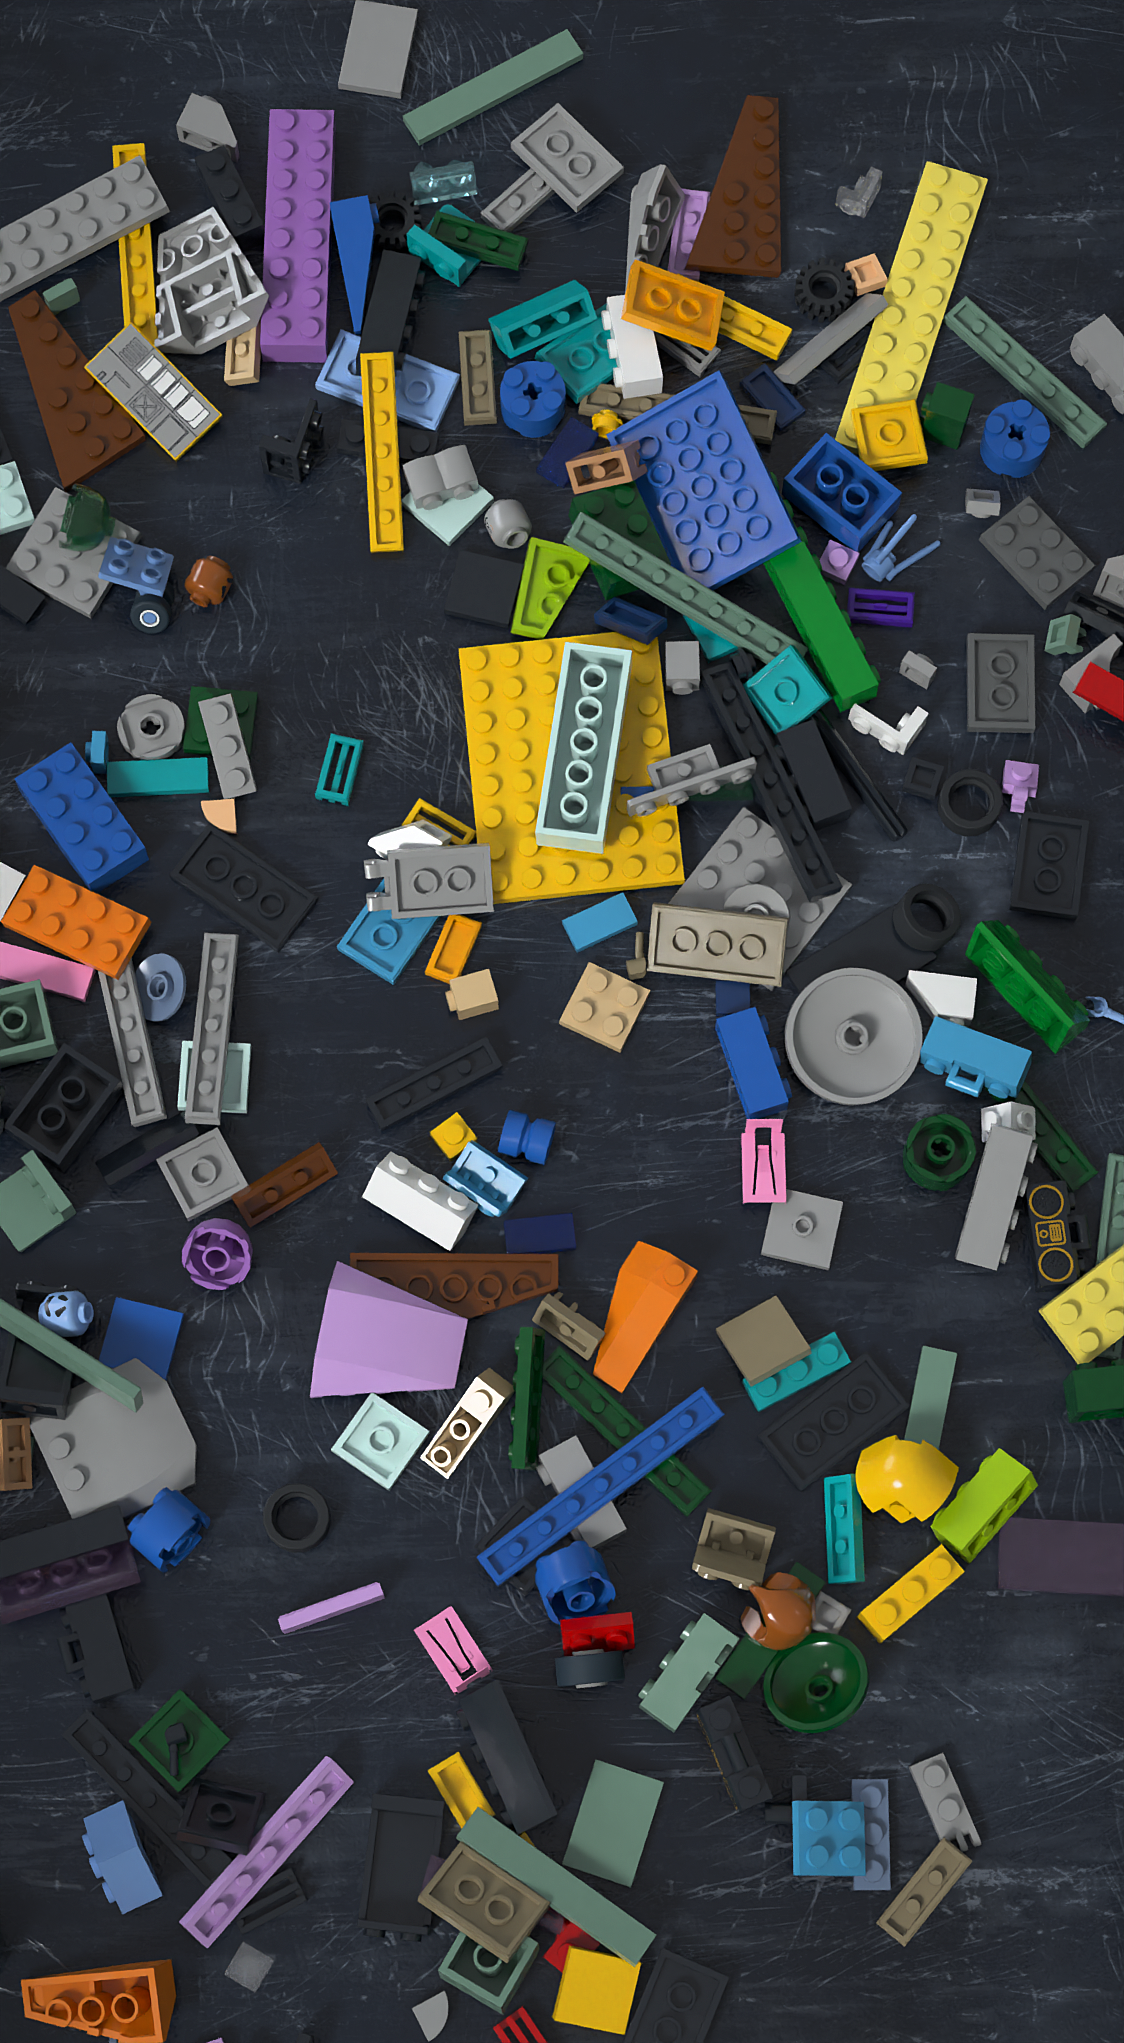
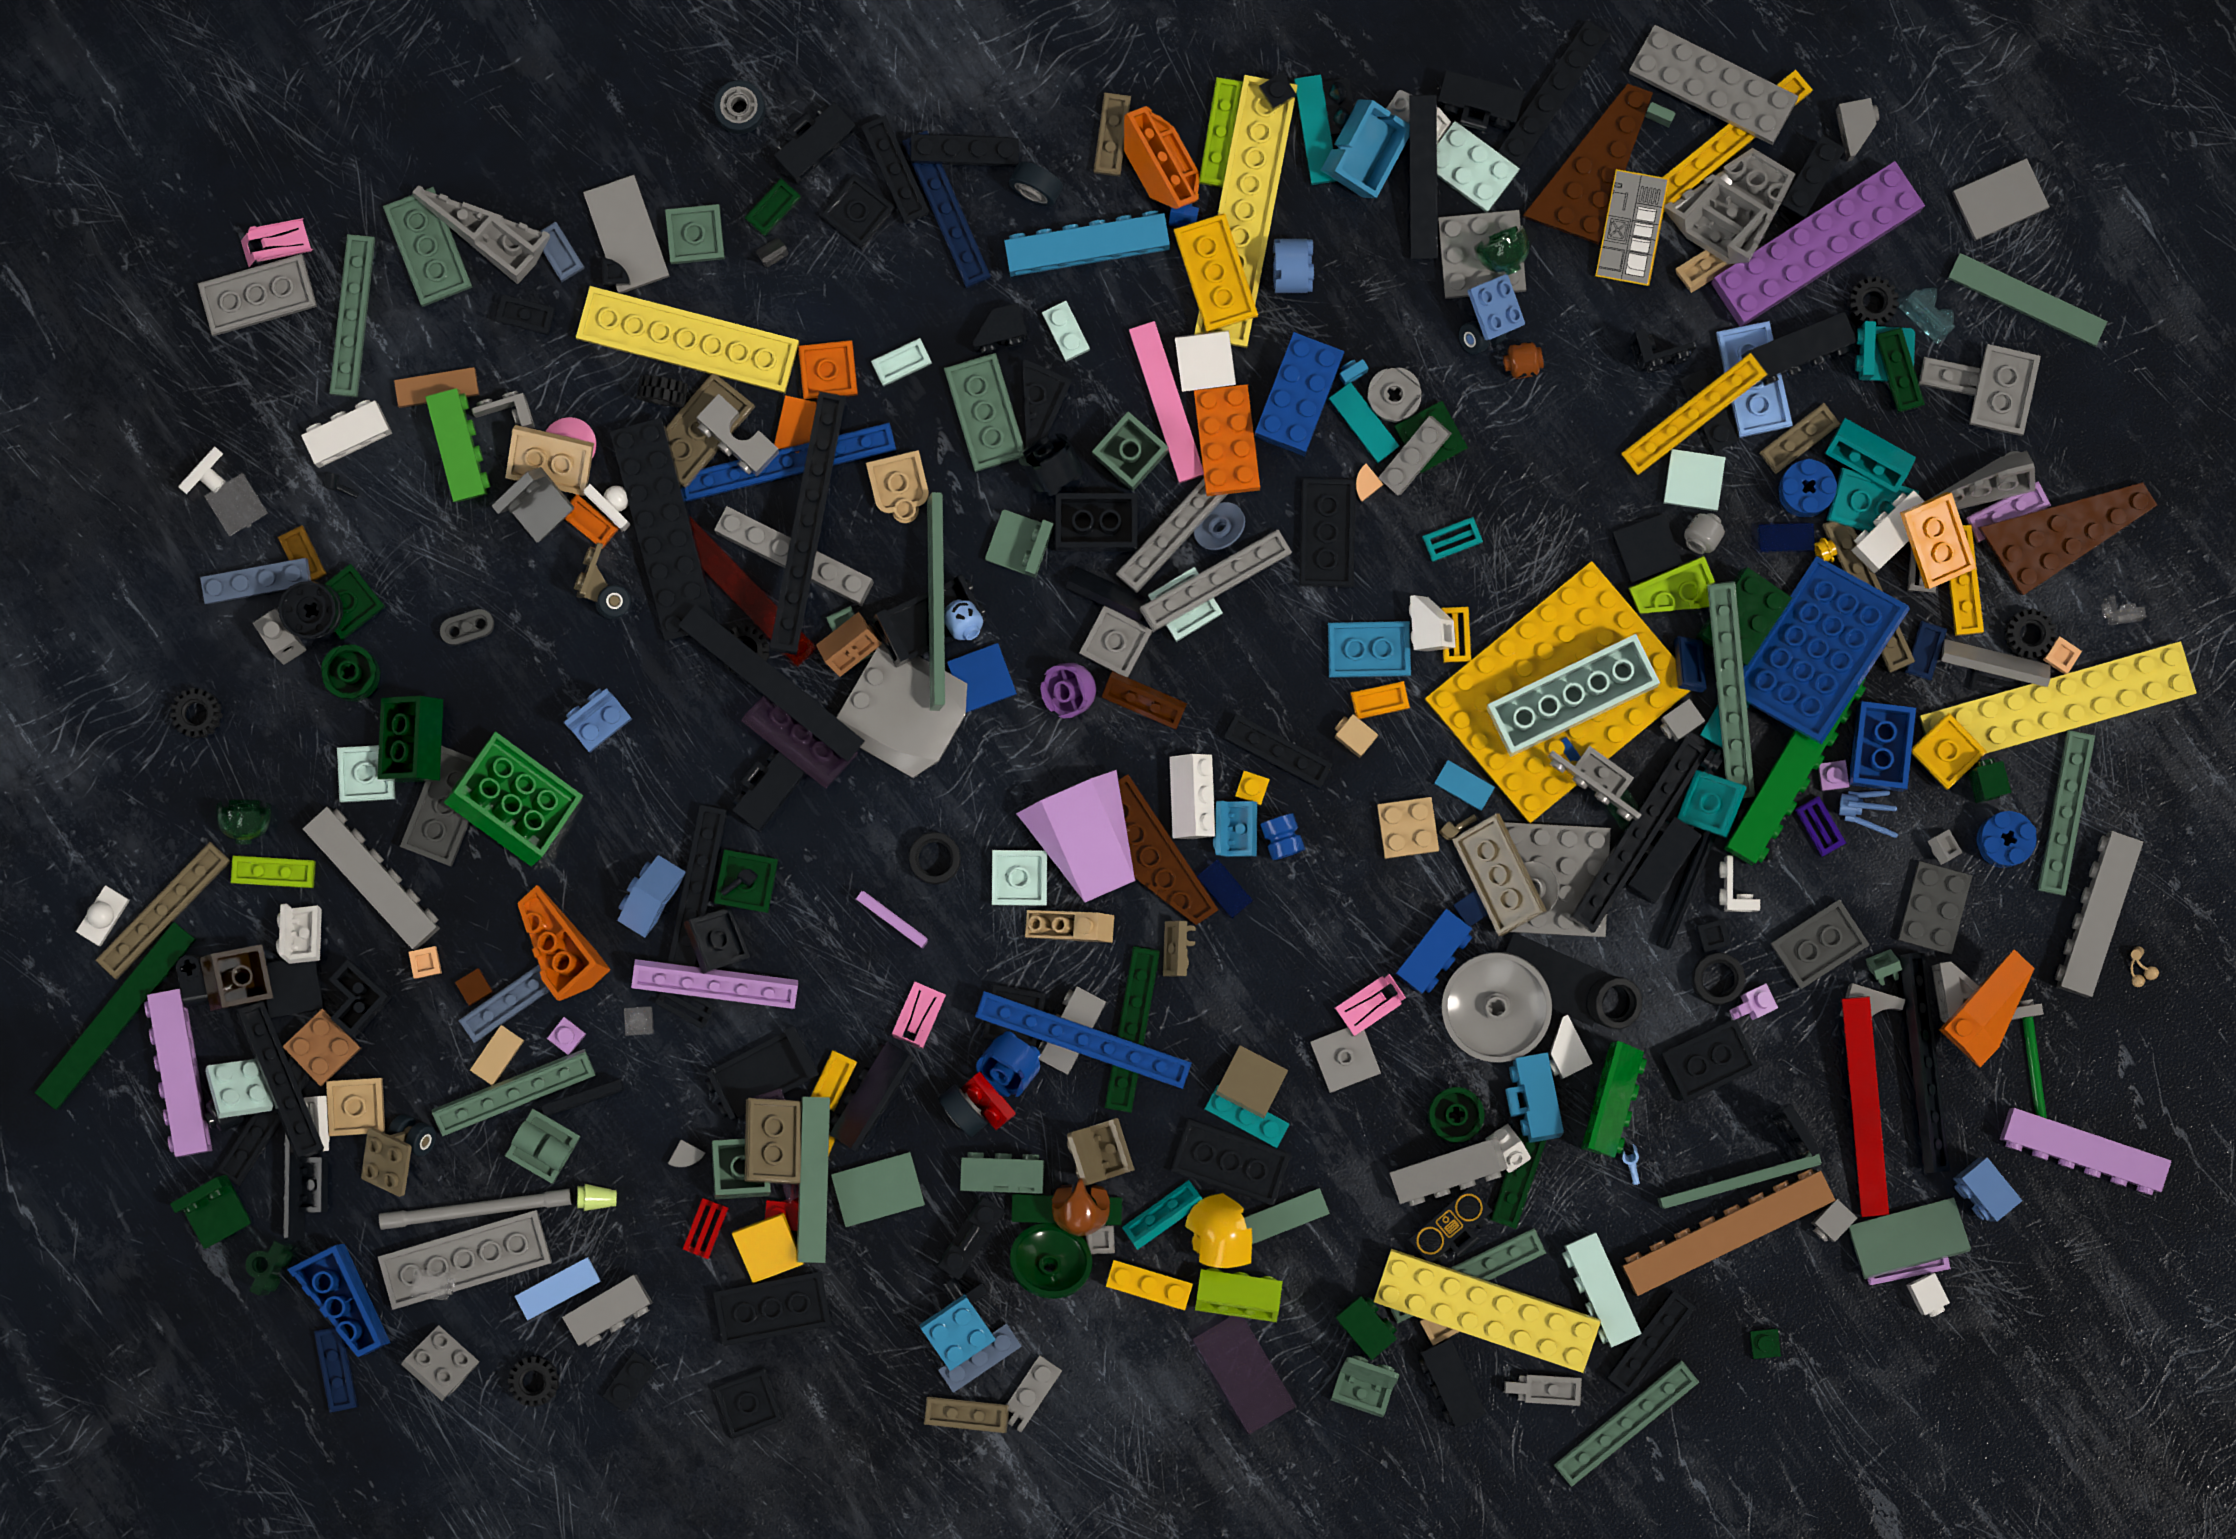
camera: 60 degrees right, 10 degrees up
(168, 1529) = (871, 782): blue brick -> none
(355, 240) = (1837, 287): blue wedge -> none
(433, 881) = (1412, 656): light grey tile -> none
(441, 477) = (1703, 466): light grey brick -> none
(527, 1407) = (1103, 958): dark green plate -> none
(606, 467) = (1789, 577): medium nougat brick -> none
(642, 1304) = (1225, 986): orange wedge -> none
(918, 669) = (1791, 882): light grey plate -> none

